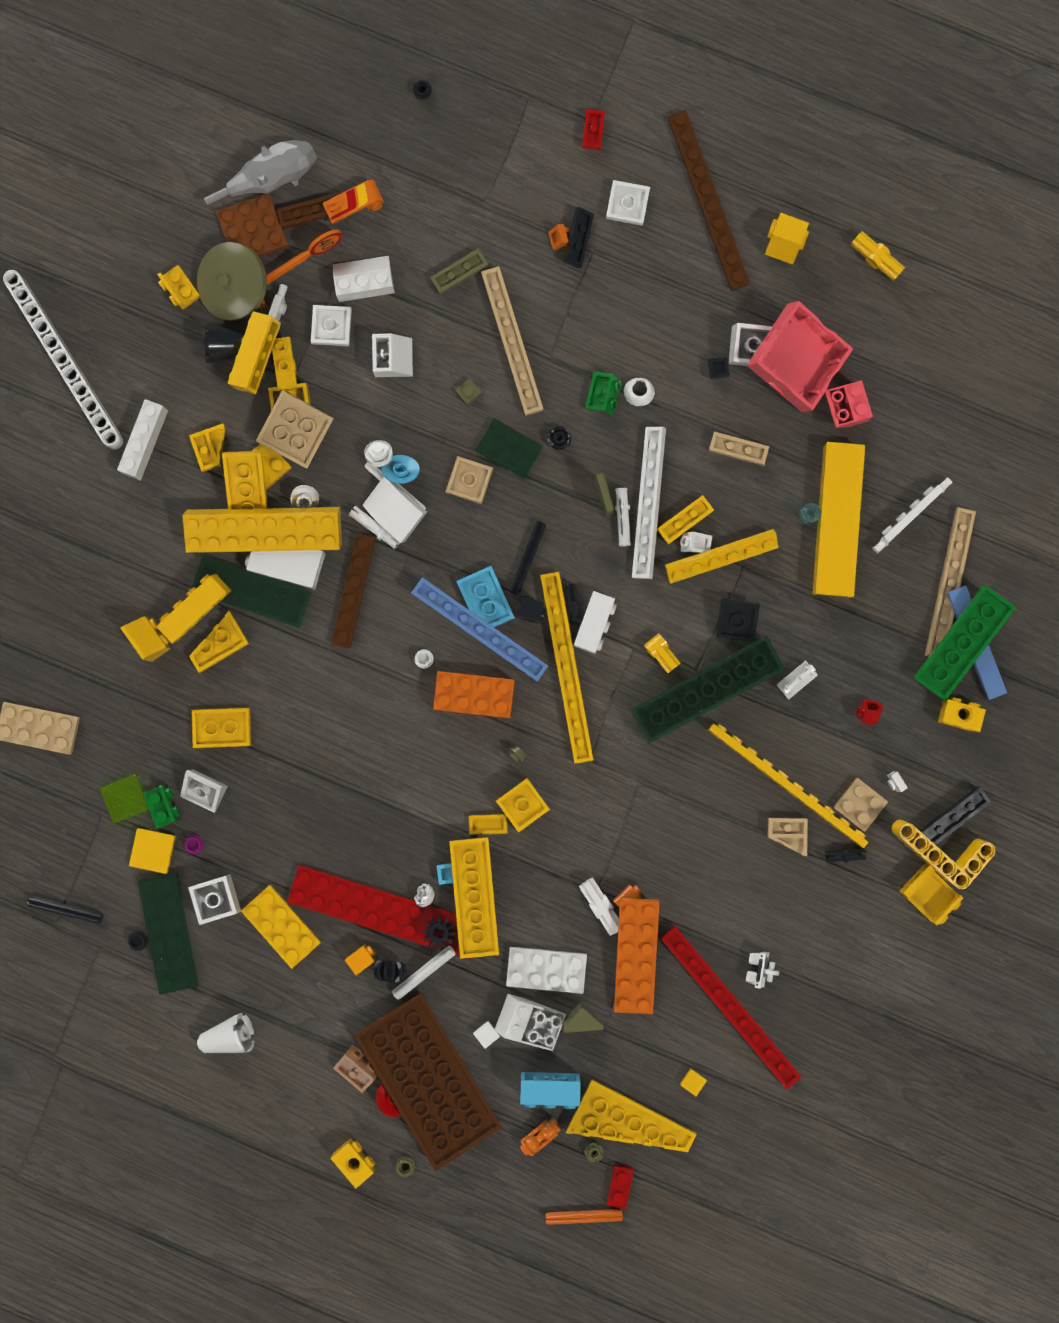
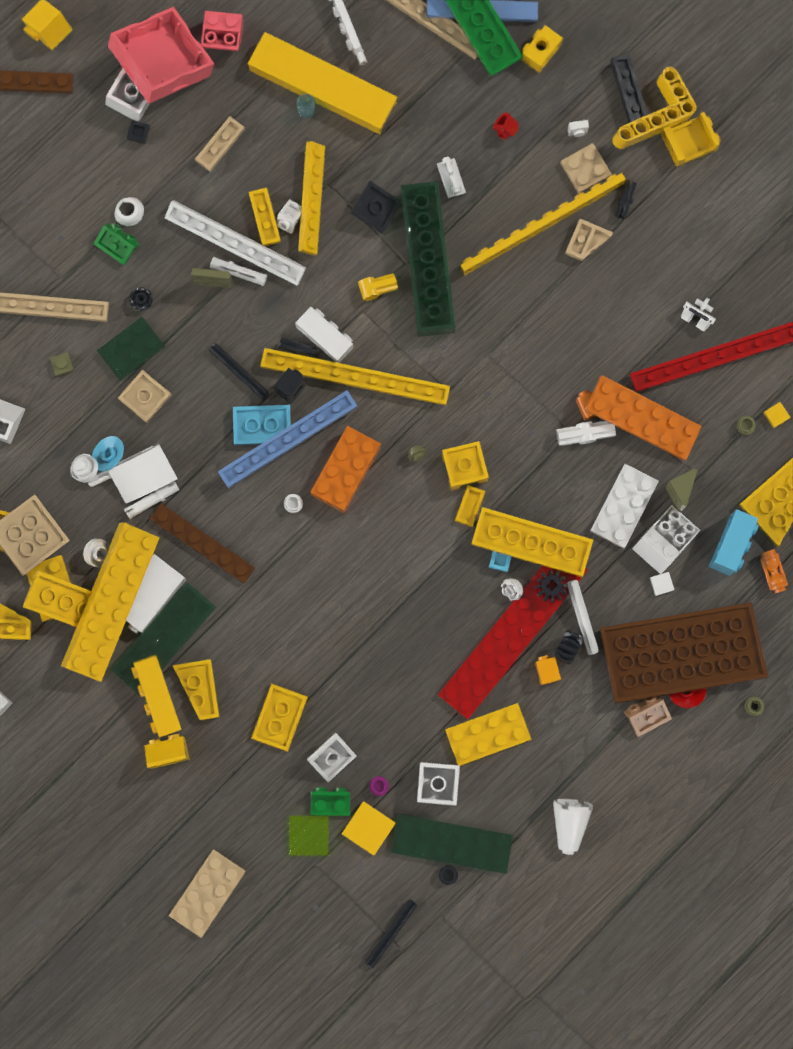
camera: 75 degrees left, 5 degrees down
(358, 1173) = (720, 751): yellow brick -> none
(671, 1056) = (746, 425): none -> olive plate

